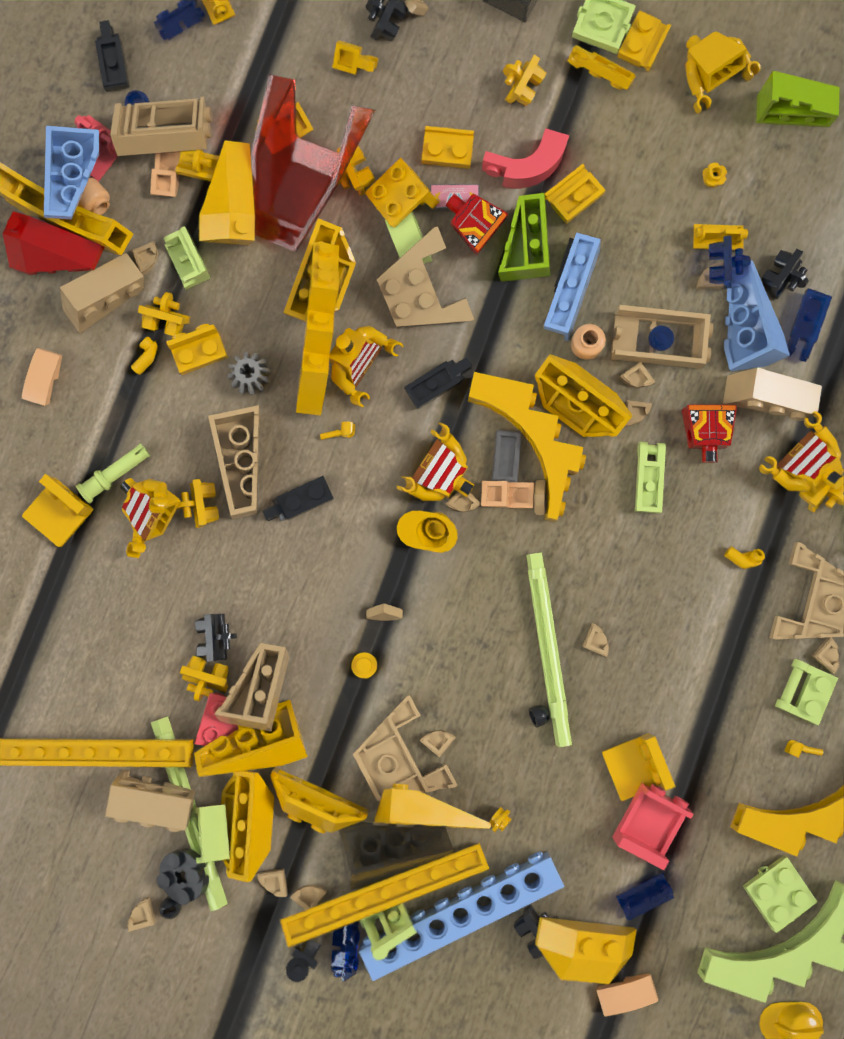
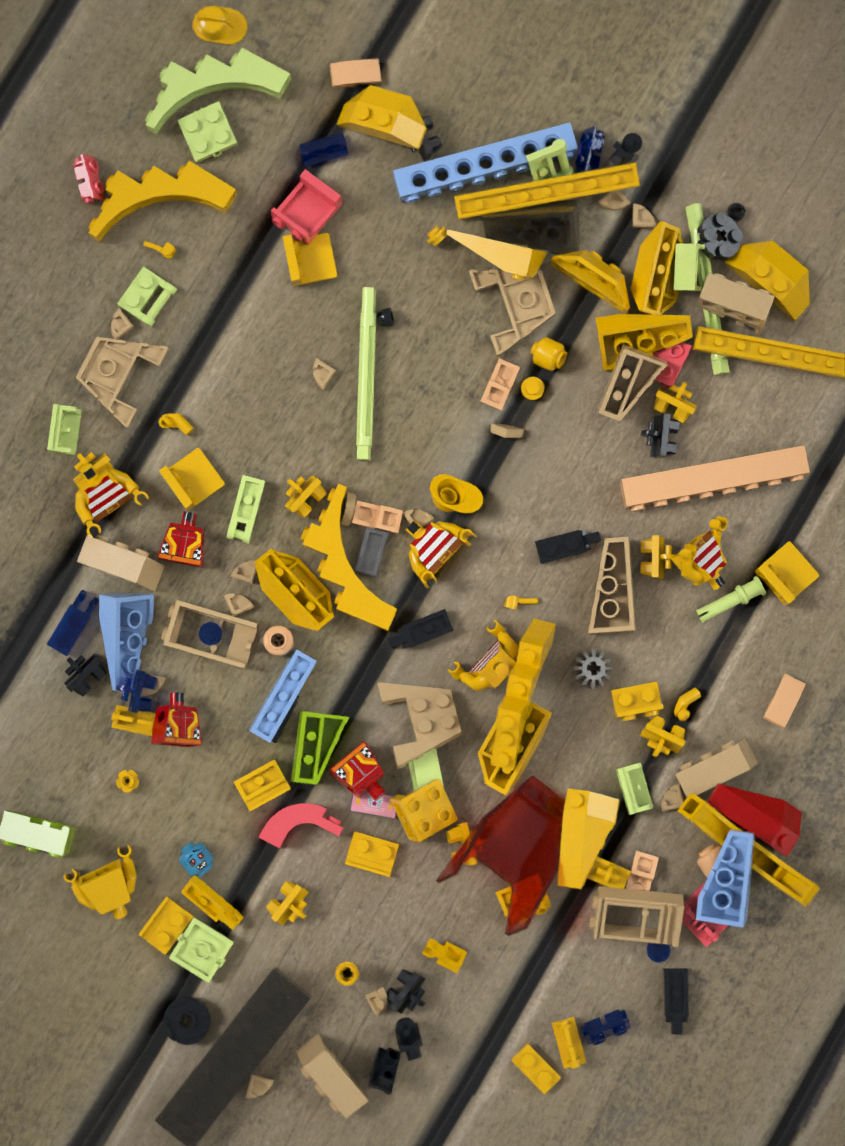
camera: 175 degrees left, 0 degrees up
(117, 847) = (776, 271): none -> yellow wedge
(142, 915) = (761, 209): tan tile -> none
(148, 601) = (714, 477): none -> light nougat brick
(352, 706) = (548, 354): none -> yellow head
(400, 664) = (500, 384): none -> light nougat slope
(437, 741) = (479, 311): tan tile -> none
(451, 18) = (347, 980): none -> yellow cone
(596, 494) = (310, 487): none -> yellow hips
(627, 107) = (196, 859): none -> dark azure head
(678, 234) = (176, 724): none -> red torso
(716, 497) = (192, 479): none -> yellow bracket

